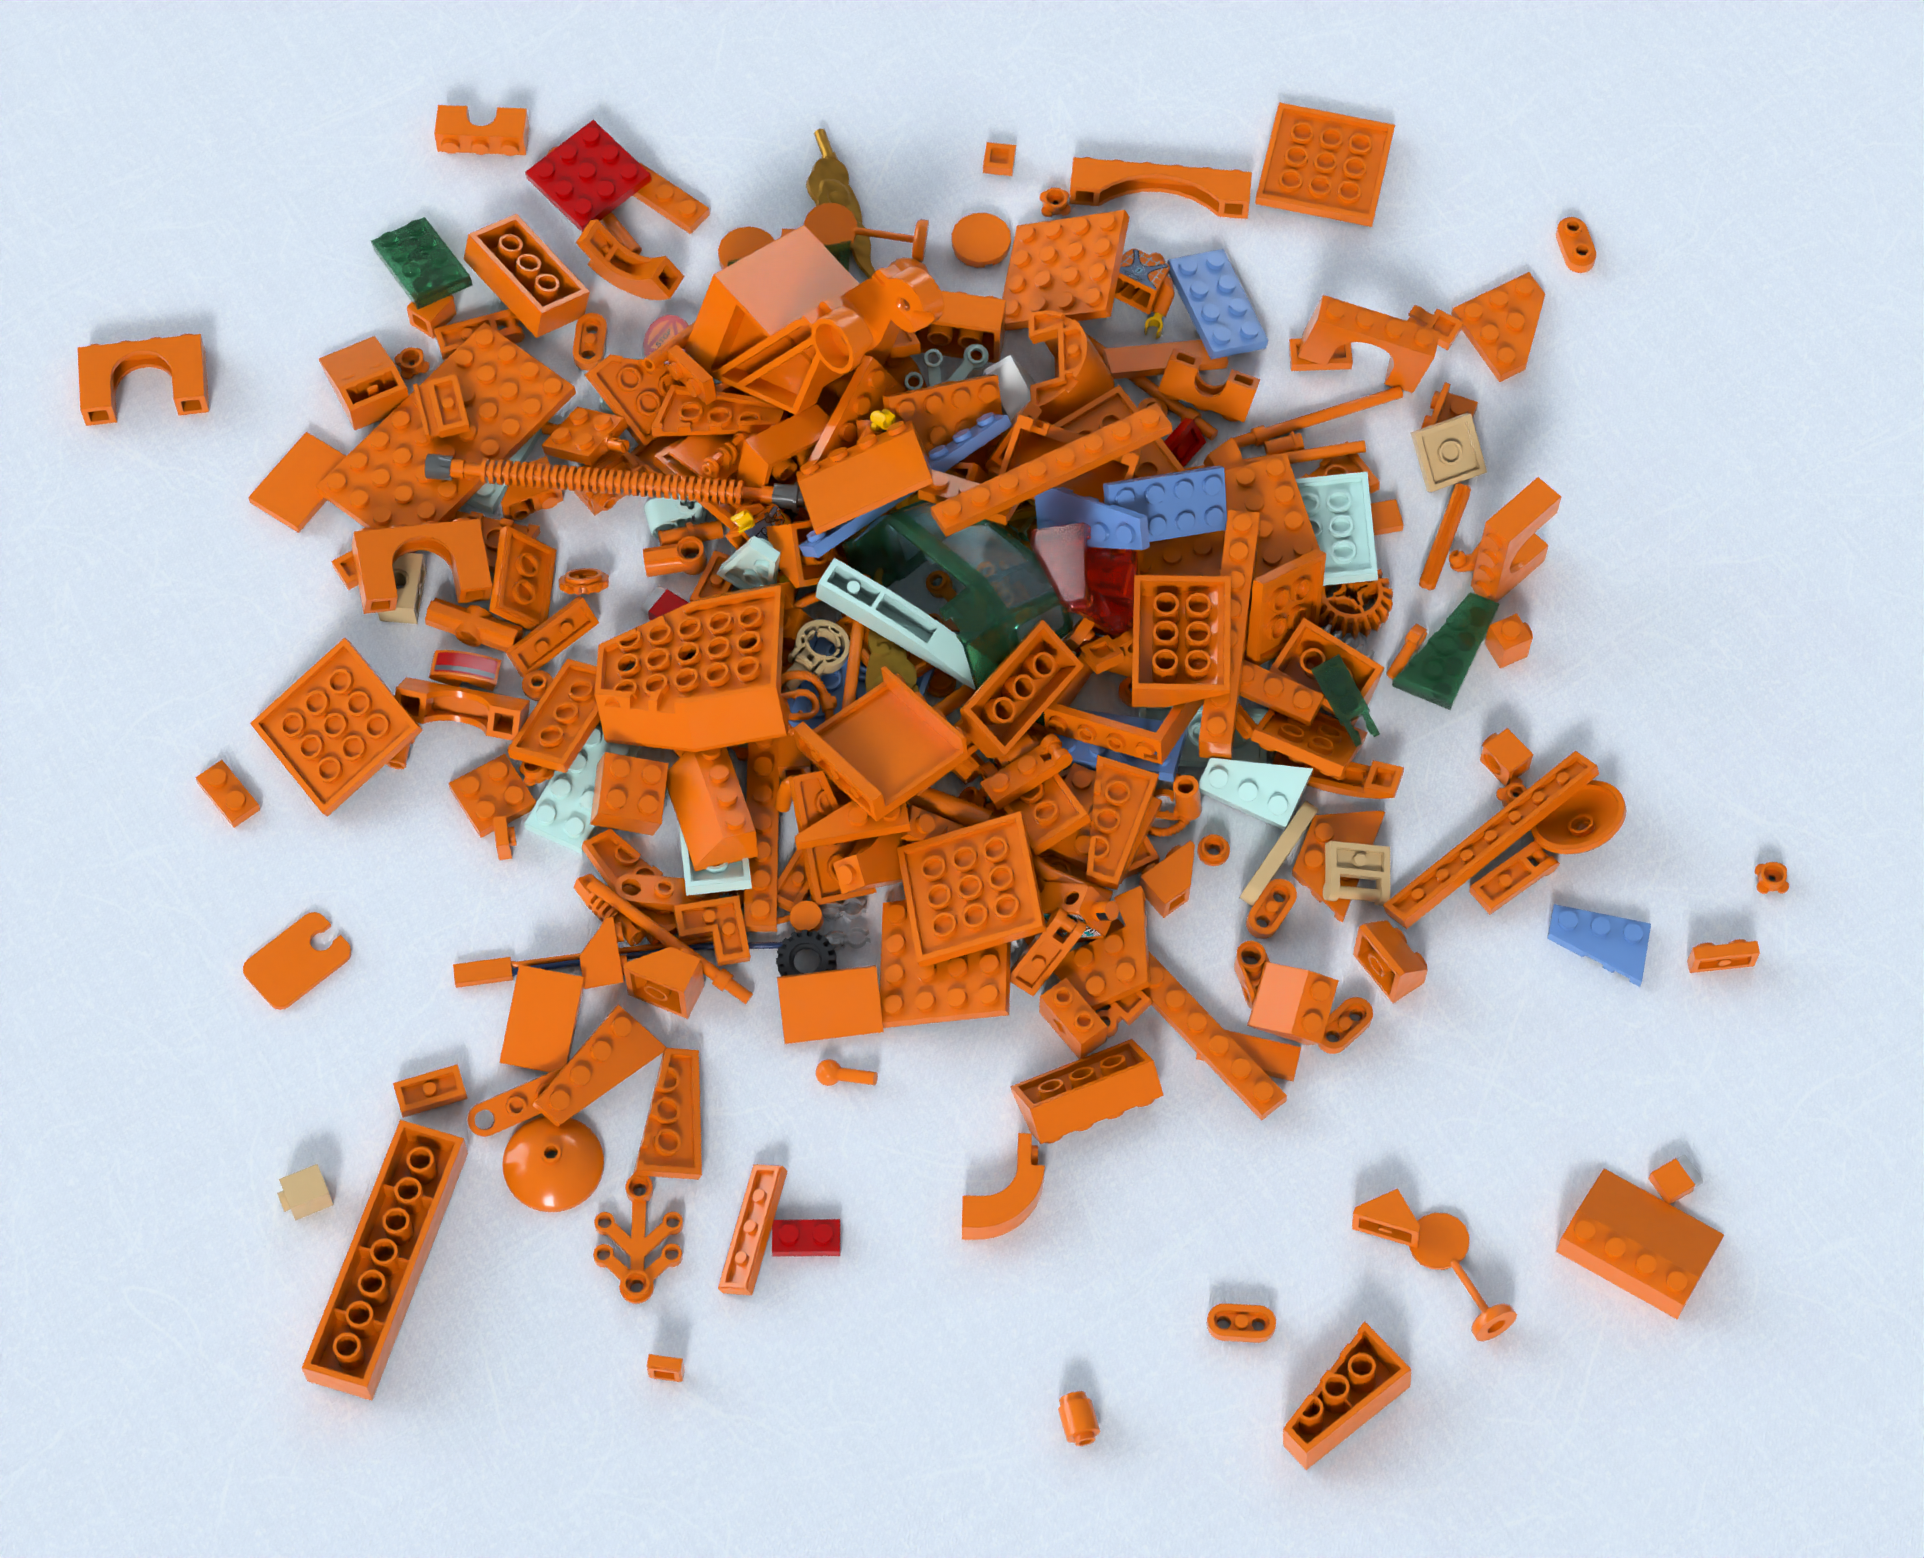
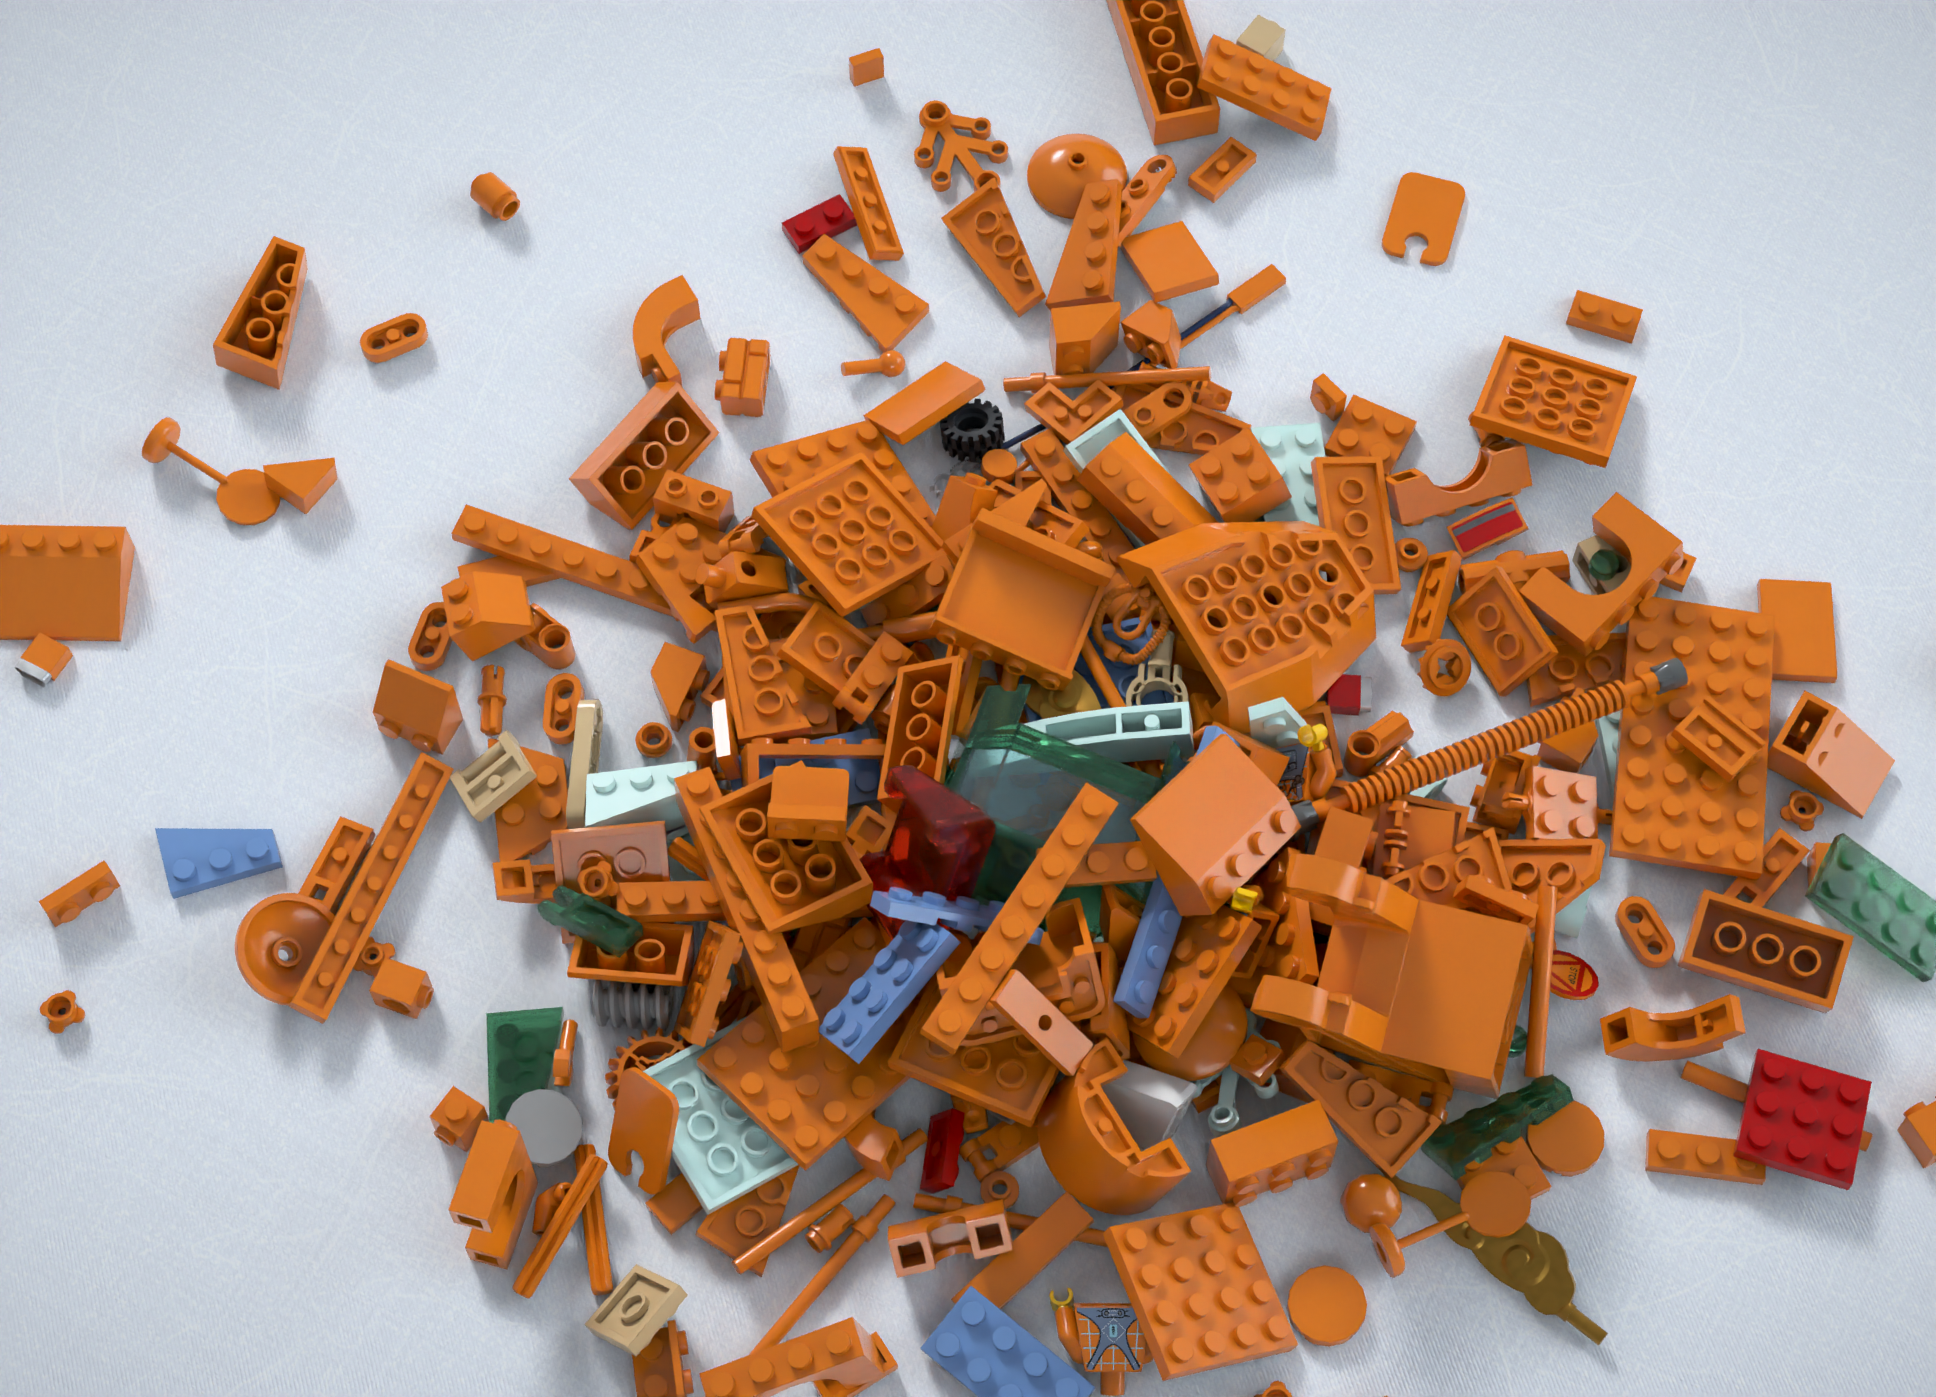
camera: 150 degrees right, 0 degrees up
(342, 1132) = (1264, 87): none -> orange plate
(404, 580) = (1600, 564): none -> clear green hinge
(807, 1141) = (873, 298): none -> orange wing
(928, 371) = (1257, 1060): none -> orange plate
(962, 1115) = (744, 377): none -> orange brick
(1078, 413) = (1053, 1035): none -> orange tile
(1151, 637) = (808, 803): none -> orange bracket
(1169, 774) = (726, 740): none -> tile
(1325, 725) = (588, 877): none -> orange plate
(1325, 945) = (491, 700): none -> orange axle
(1378, 540) = (644, 1123): none -> orange piece
(1452, 542) = (560, 1226): none -> orange axle
(1452, 599) = (547, 1125): none -> light grey tile

